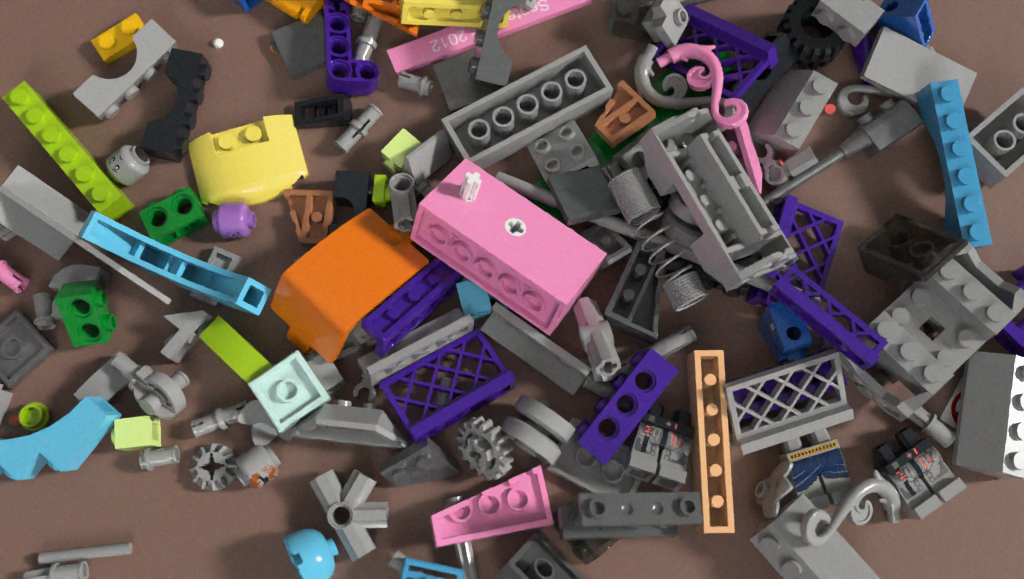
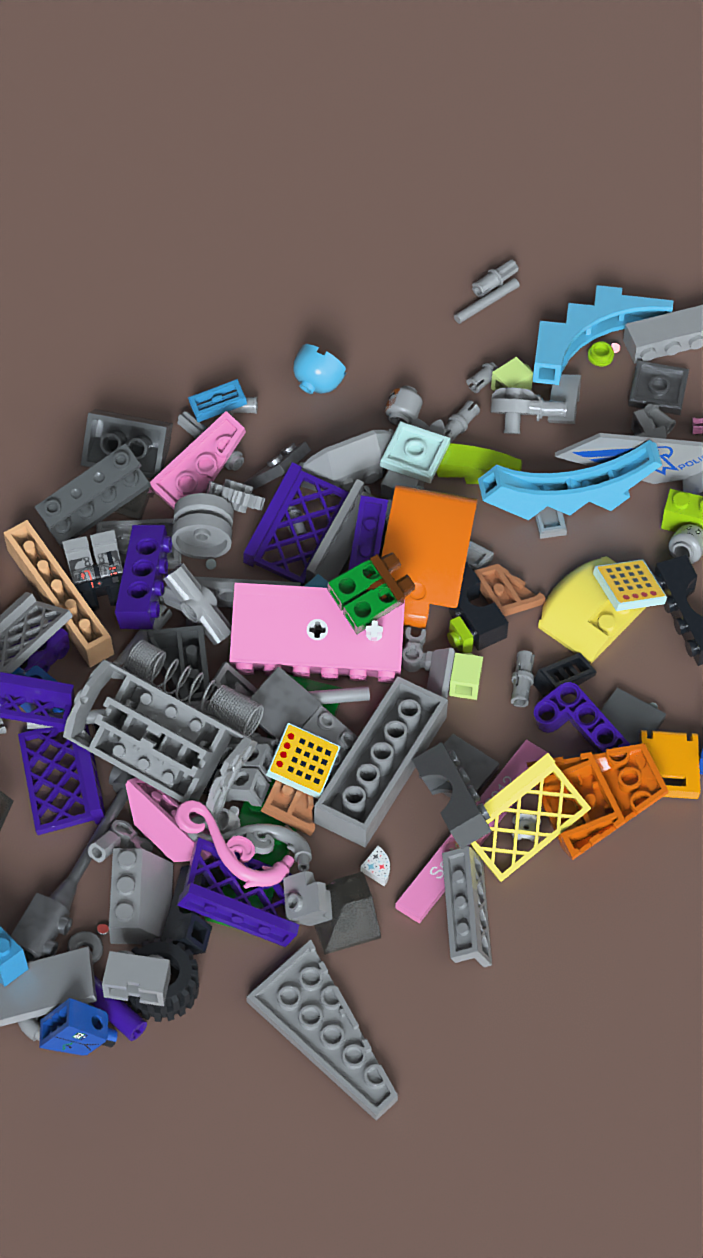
camera: 145 degrees right, 20 degrees down
(80, 315) = (618, 419): green brick -> none
(176, 224) = (617, 523): green brick -> none
(190, 327) = (535, 459): light grey slope -> none
(209, 149) = (629, 585): none -> tile
(223, 476) = (439, 402): light grey gear -> none
(233, 220) = (566, 553): medium lavender head -> none
(362, 513) = (312, 415): light grey piece -> none
(367, 41) = (569, 740): light grey pin -> none
(403, 201) = (428, 623): light grey piece -> none
(416, 84) = (501, 740): light grey pin -> none
(453, 211) = (370, 591): none -> green hips
(585, 36) = (377, 866): none -> white tile
(599, 130) = (303, 760): none -> yellow tile

